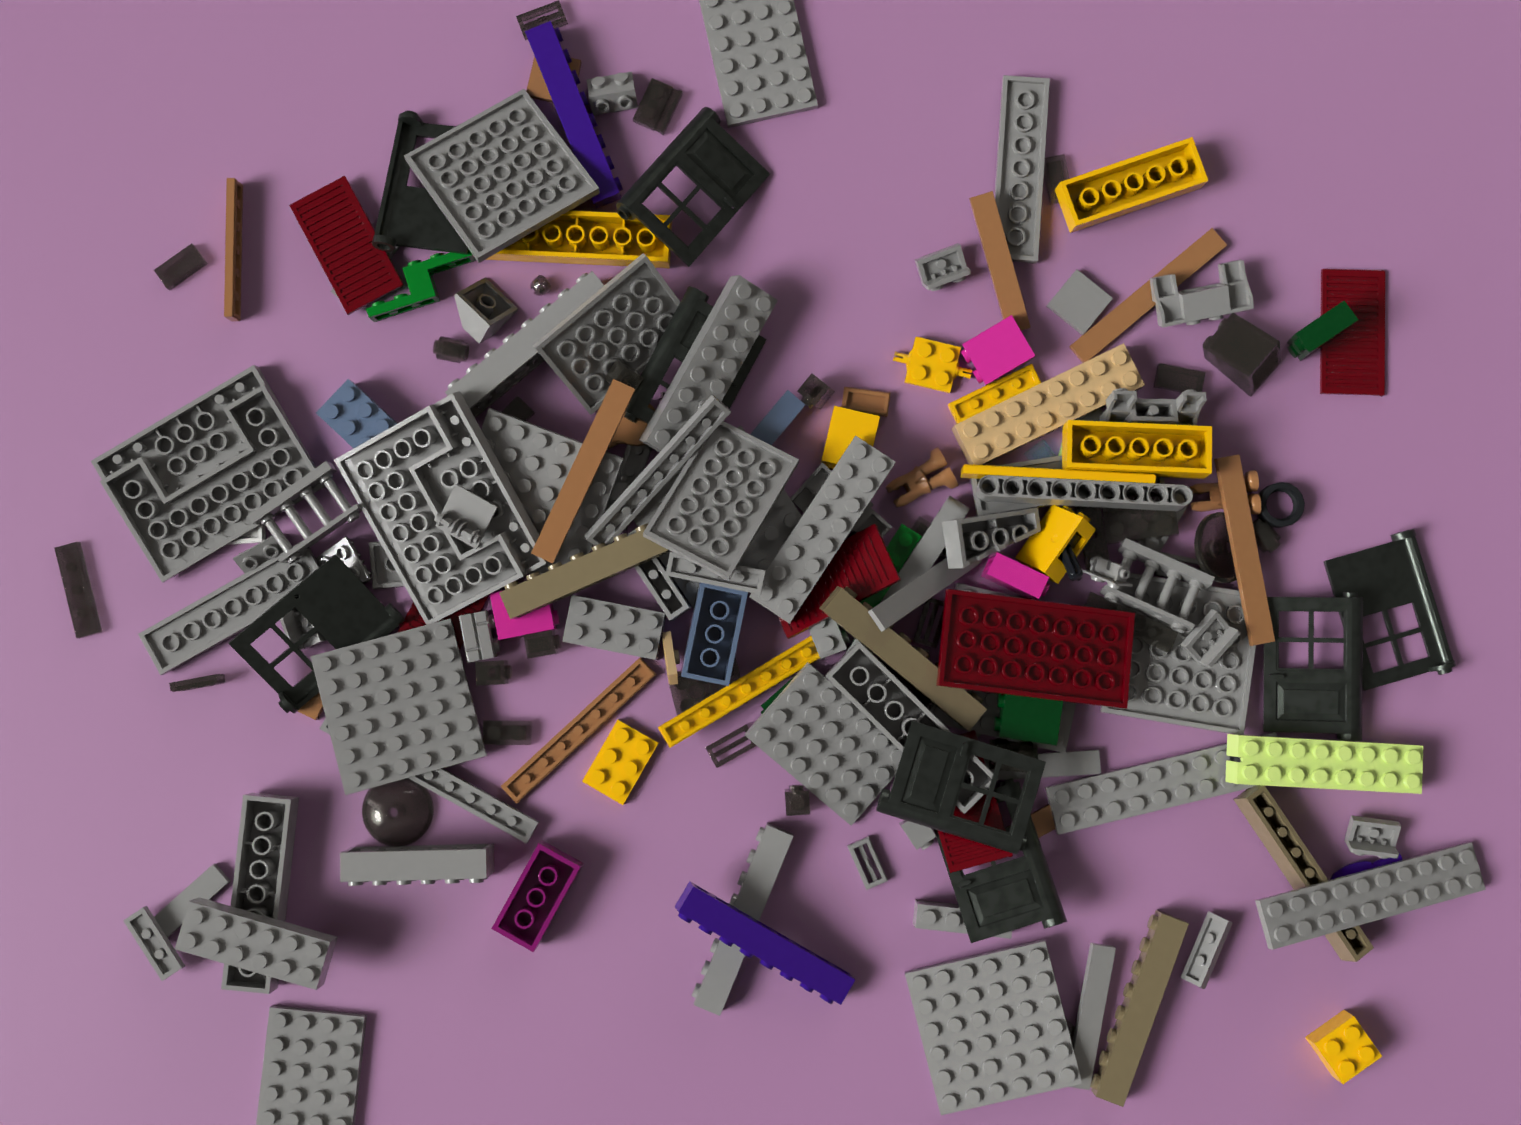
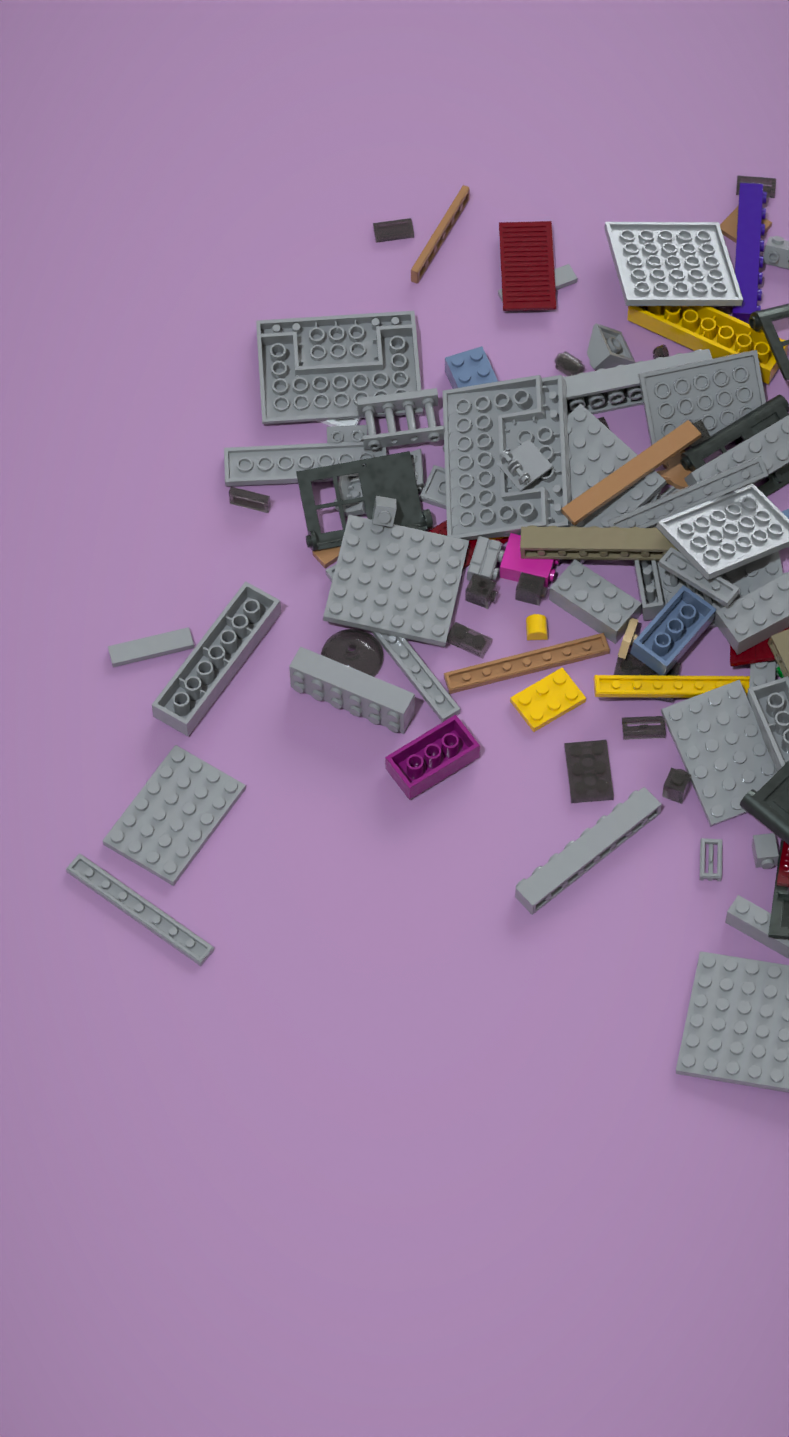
camera: 25 degrees right, 25 degrees down
(78, 590) = (193, 403): clear smoke tile -> none
(154, 943) = (115, 656): light grey plate -> none
(256, 943) = (201, 679): light grey brick -> none
(345, 637) = (384, 511): none -> light grey brick
(409, 213) = (588, 264): pearl dark grey door -> none
(420, 284) = (570, 312): green bracket -> none
(569, 685) = (536, 627): none -> yellow brick
(700, 824) = (588, 771): none -> clear smoke plate
(765, 943) = (598, 865): dark purple brick -> none

